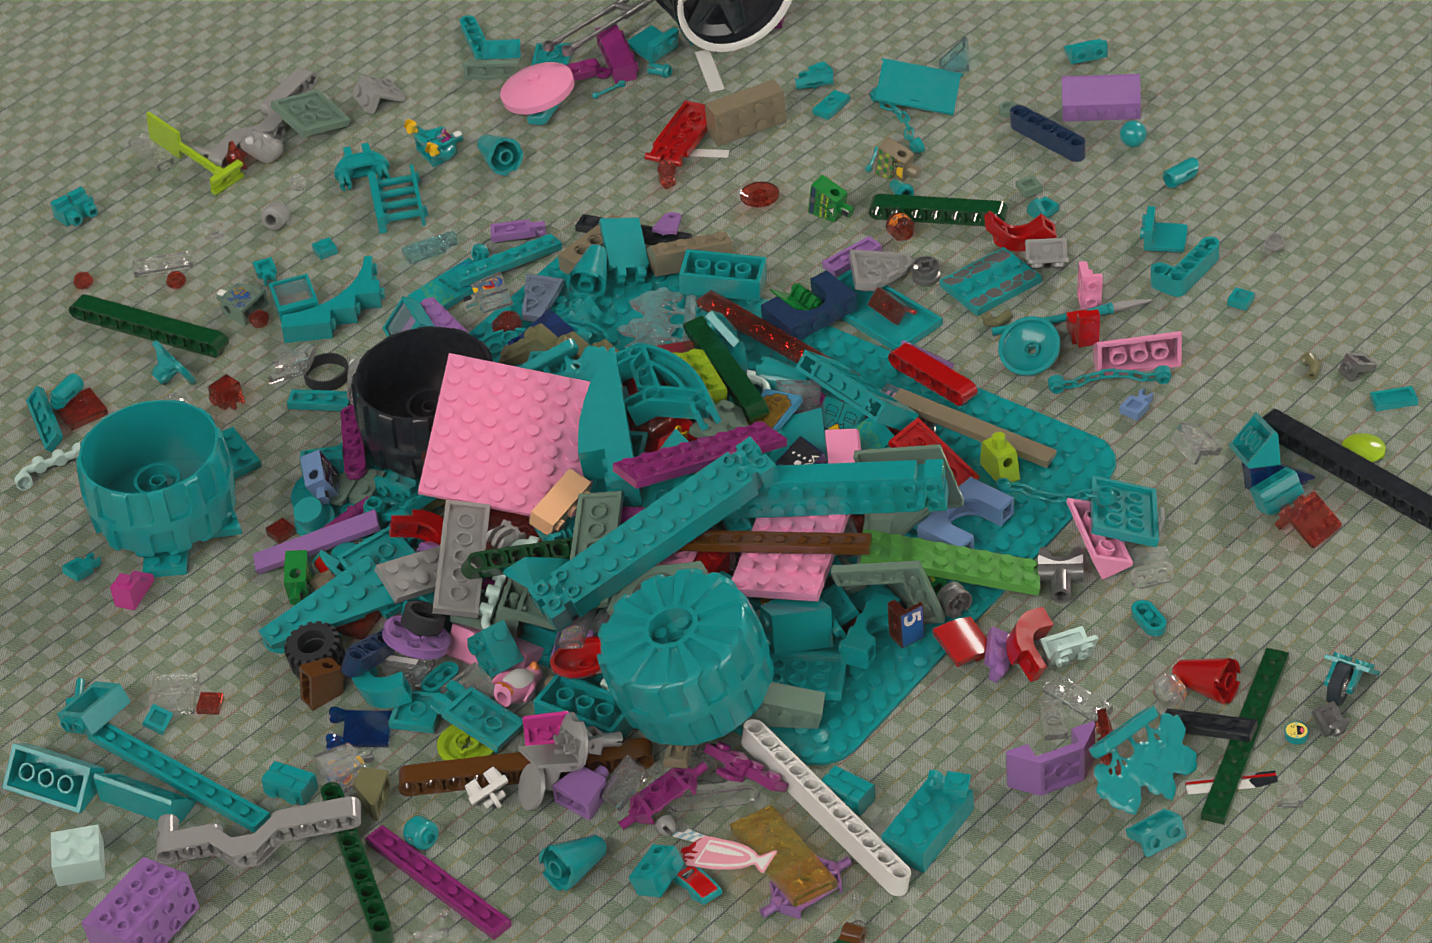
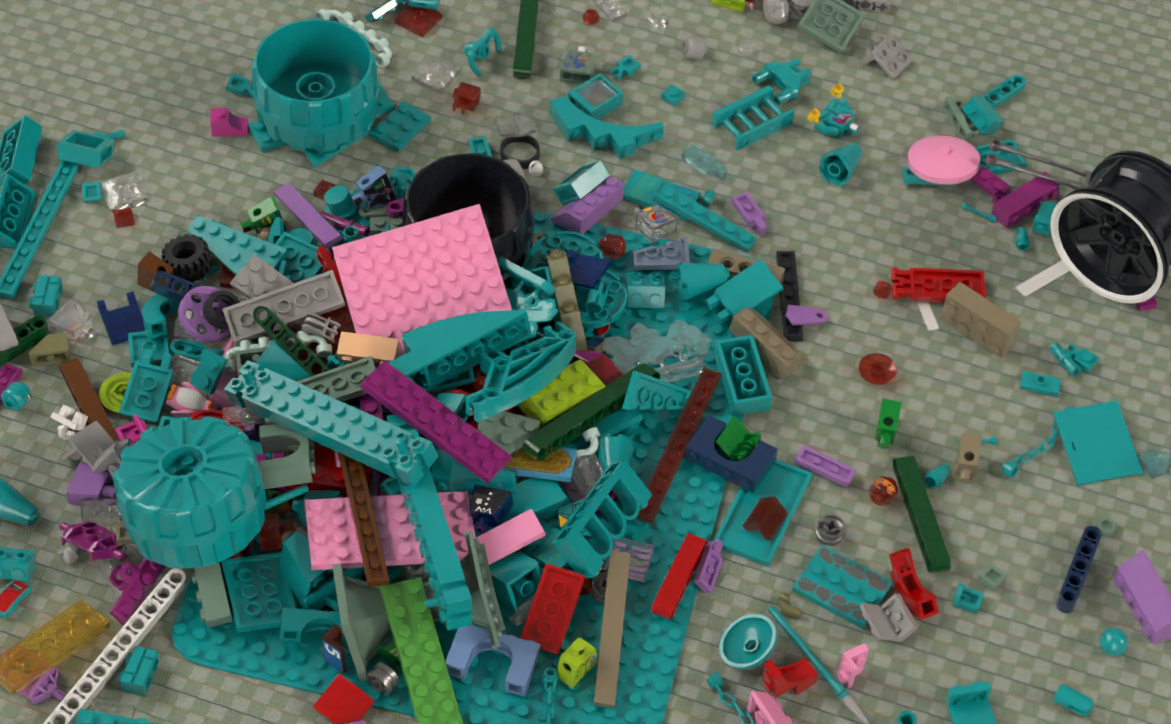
camera: 60 degrees right, 10 degrees up
(259, 318) = (566, 85): clear red plate -> none
(667, 179) = (867, 294): clear red bush -> none
(720, 853) = (40, 601): sticker -> none
(877, 268) = (809, 488): light grey plate -> none

